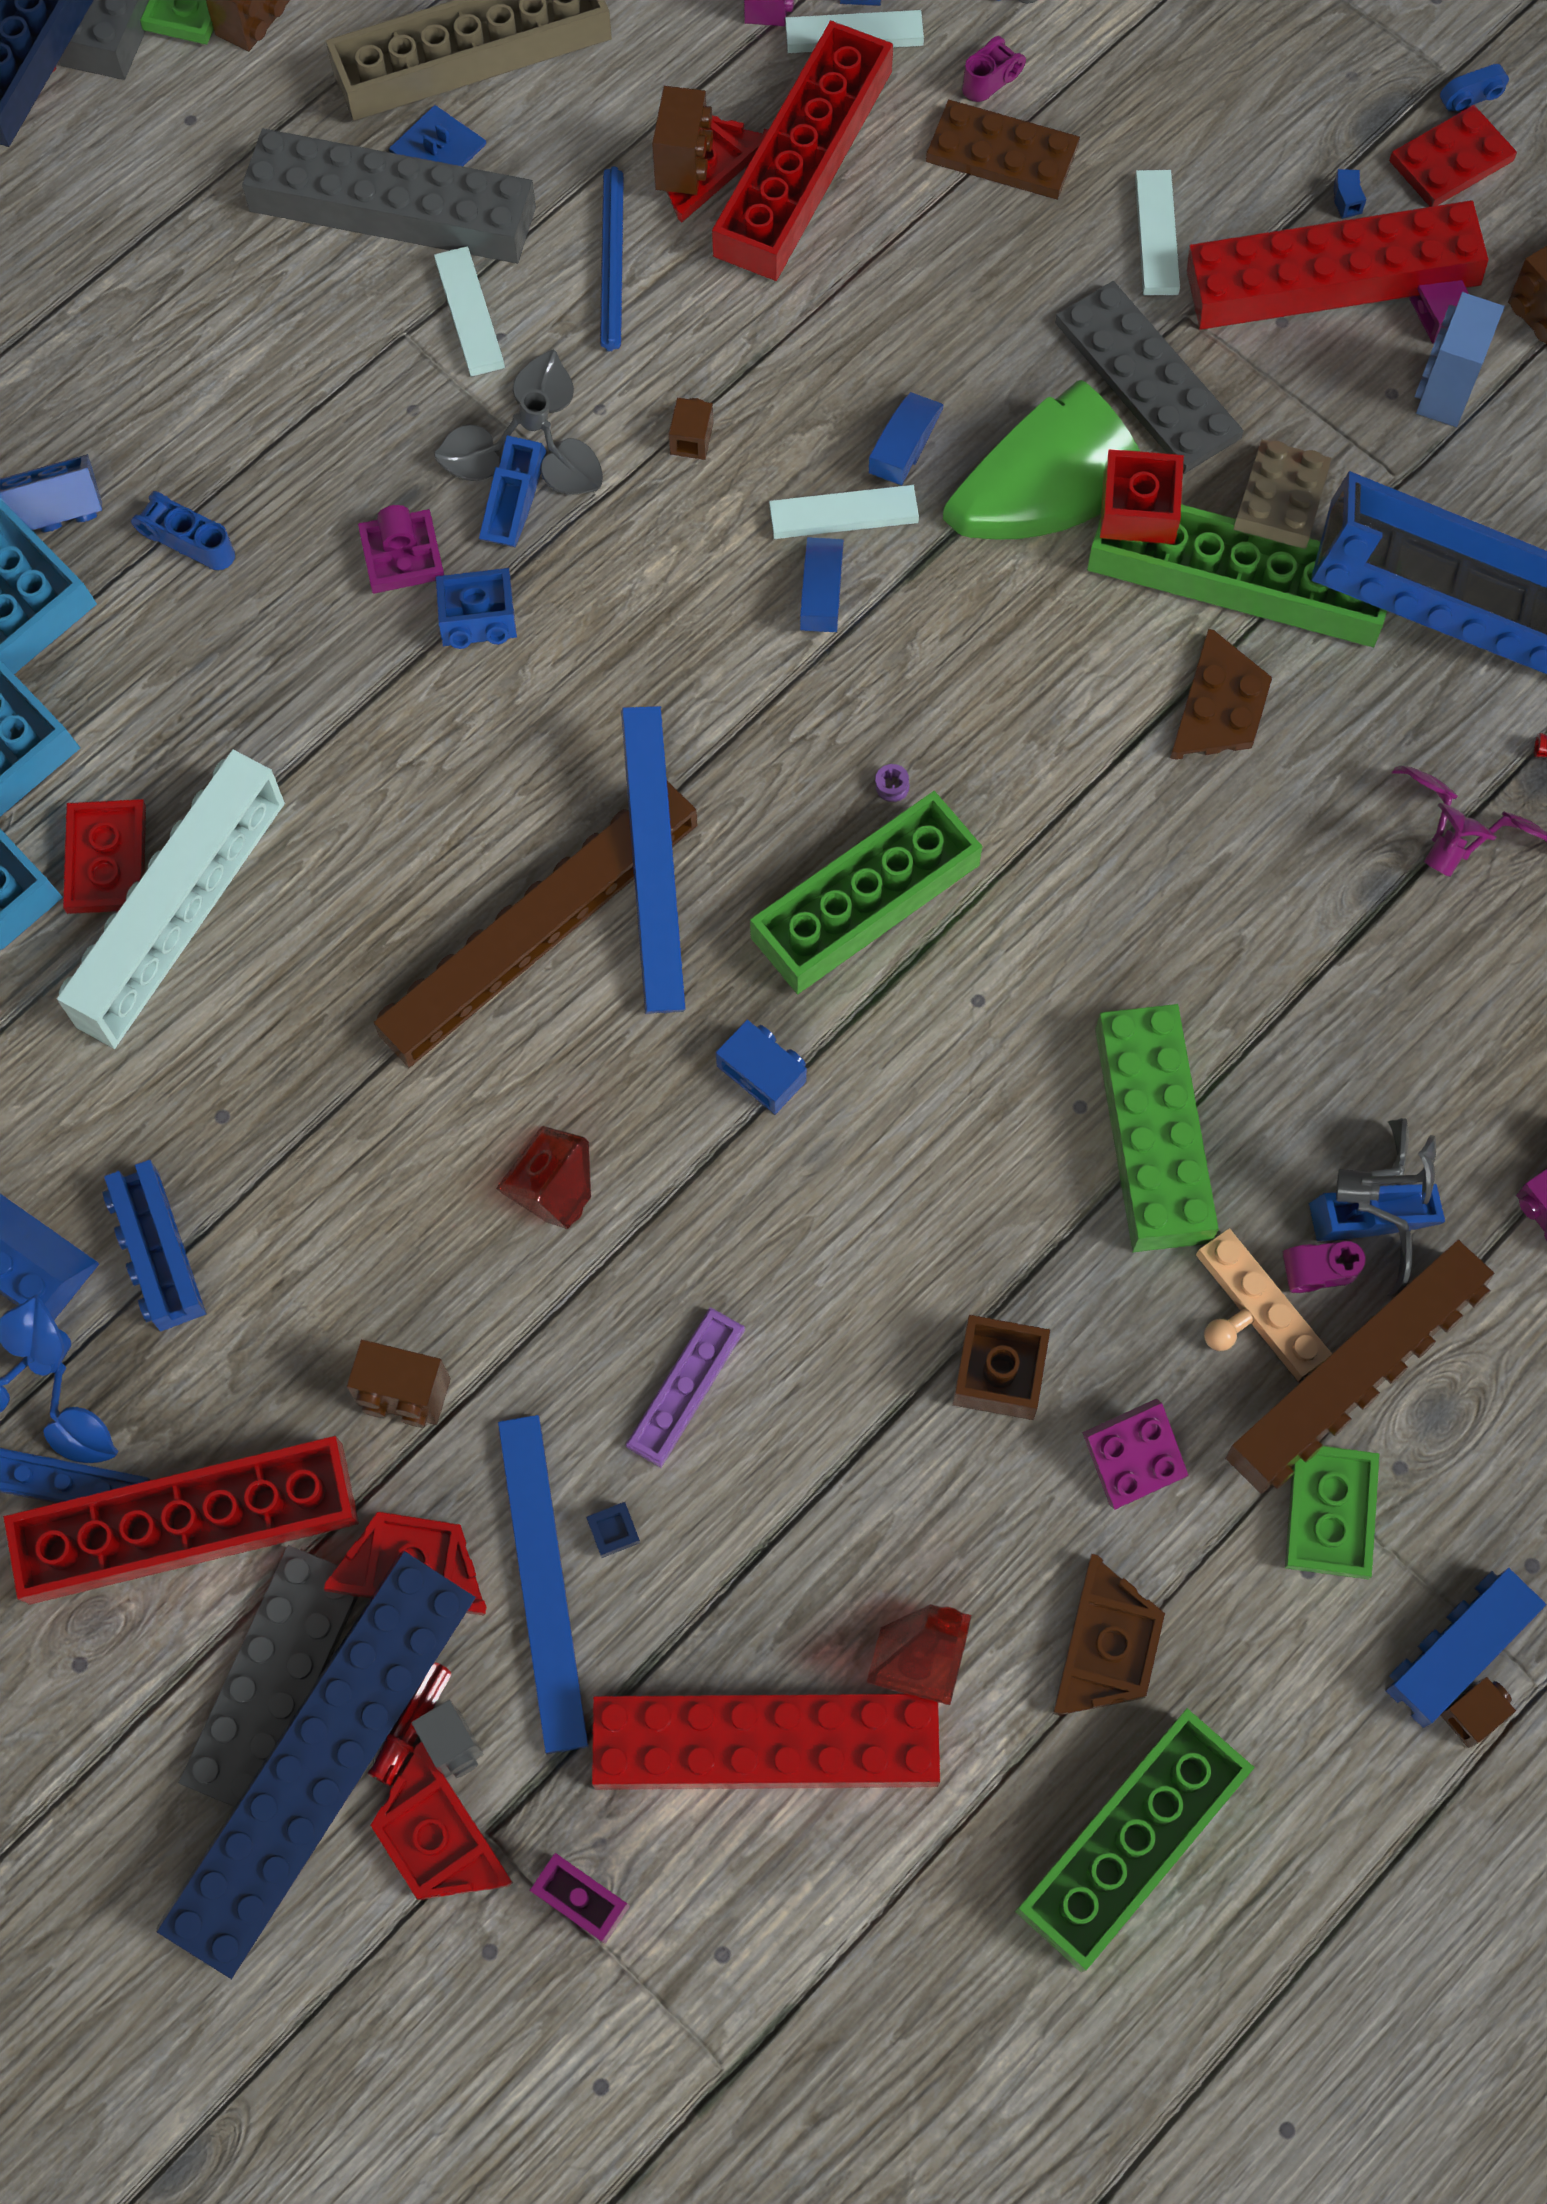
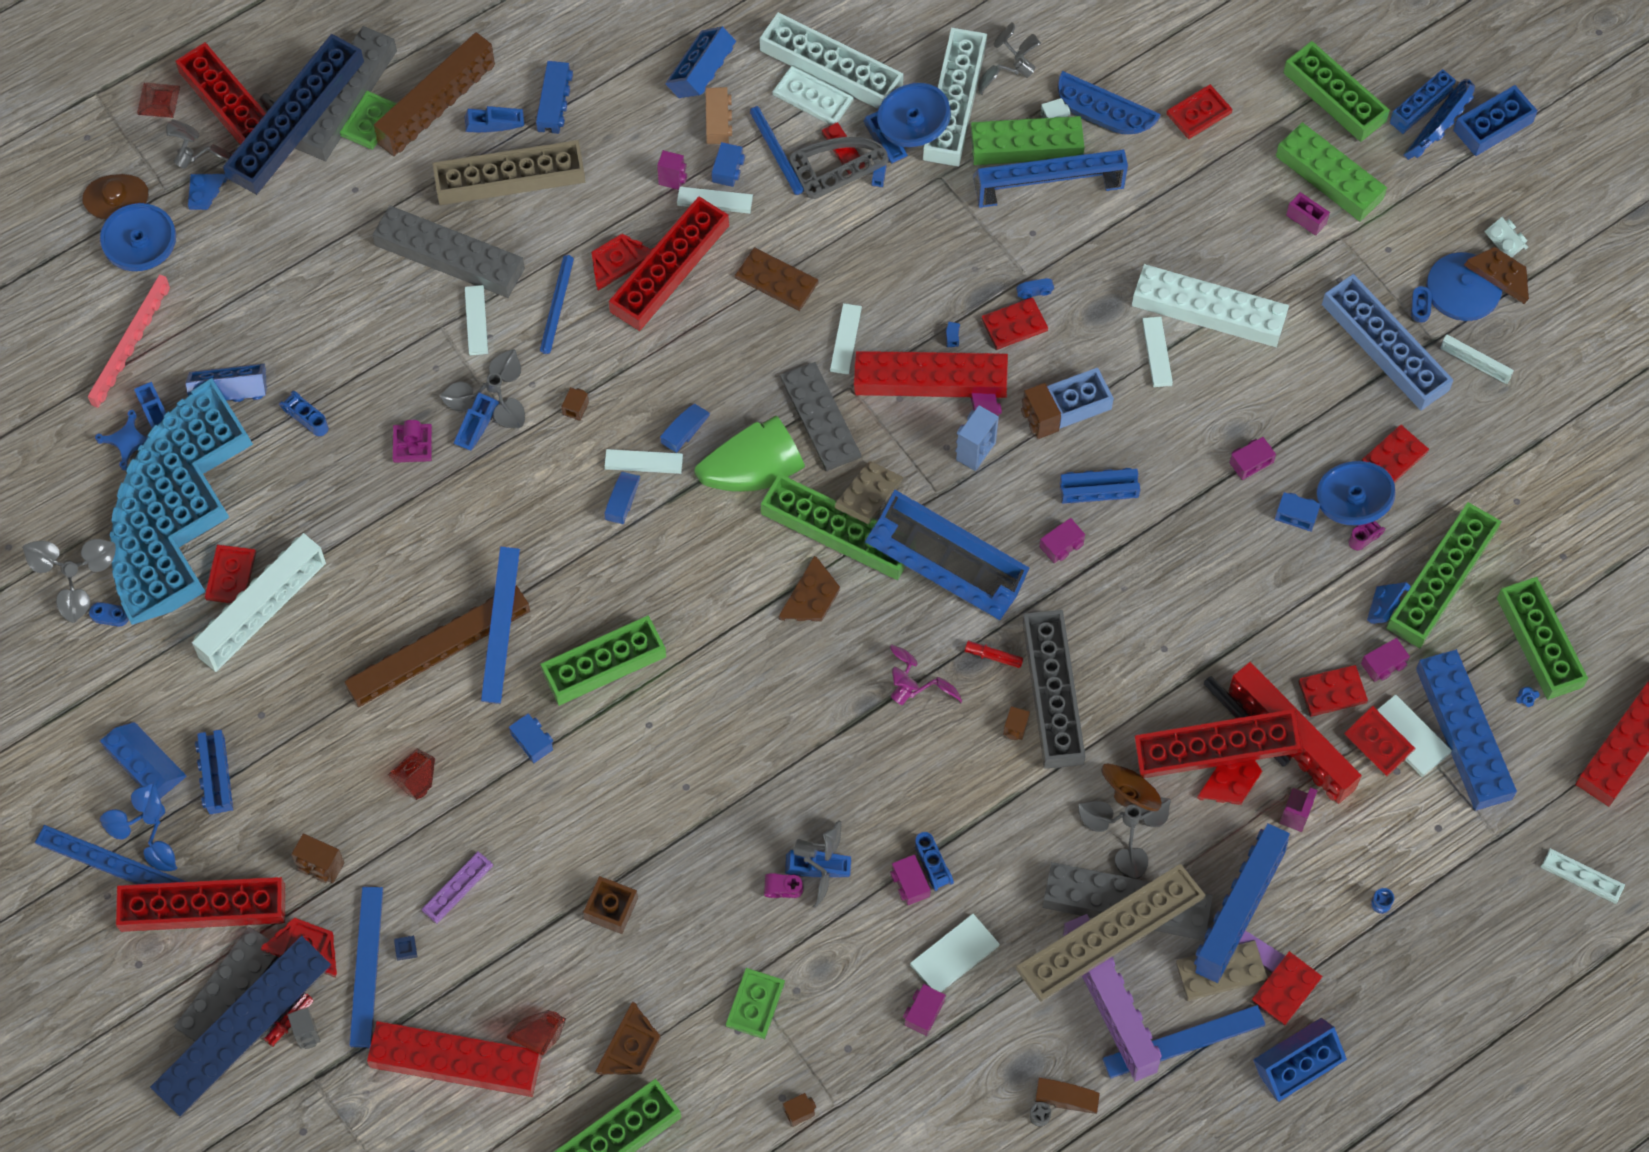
camera: 10 degrees right, 5 degrees down
(434, 1835) = (288, 1073): red wing -> none
(439, 139) = (481, 224): blue piece -> none
(475, 608) = (443, 479): blue plate -> none
(580, 1898) = (349, 1112): magenta brick -> none
(682, 140) = (603, 250): reddish brown brick -> none
(893, 794) = (633, 613): medium lavender bush -> none
(991, 70) = (782, 232): magenta piece -> none
(1135, 1454) = (665, 958): magenta plate -> none
(1141, 496) = (788, 483): red brick -> none
(1156, 1128) = (718, 803): bright green brick -> none
(1260, 1305) = (748, 899): light nougat plate -> none
(1359, 1367) = (786, 936): reddish brown brick -> none
(1465, 1647) = (801, 1078): blue brick -> none

